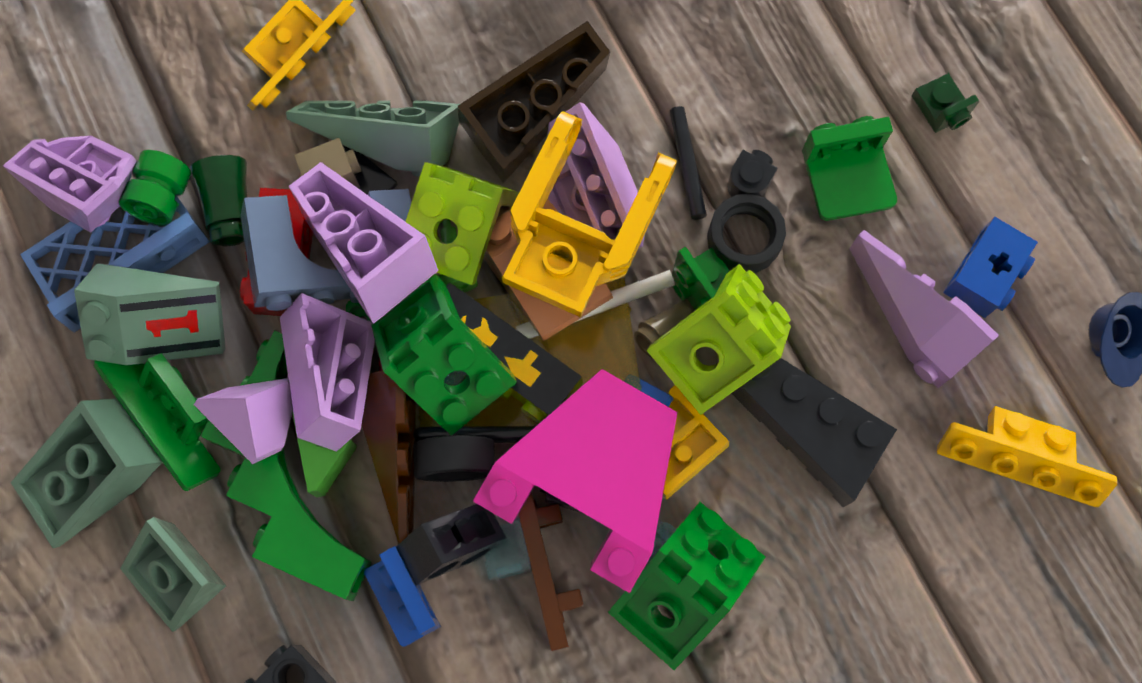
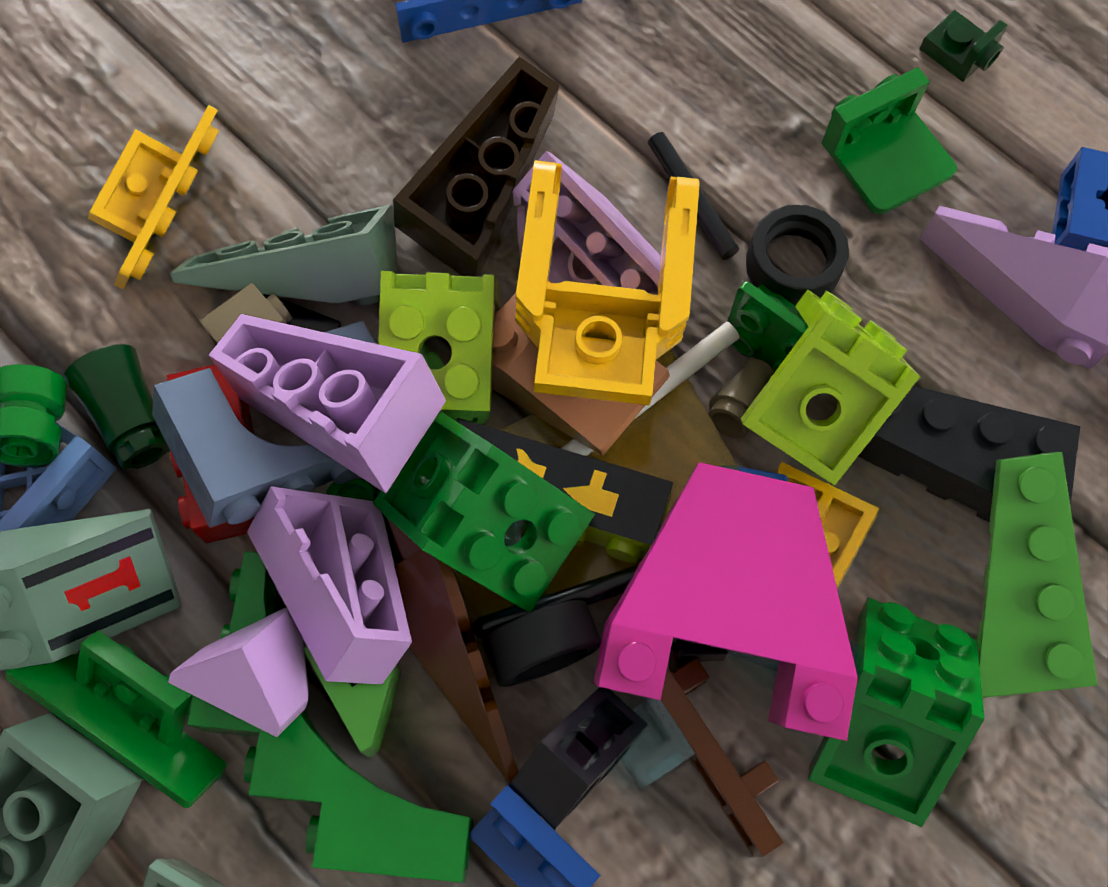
camera: 20 degrees left, 5 degrees down
(751, 174) = (774, 184): black plate -> none
(812, 540) = (1034, 599): none -> bright green wing

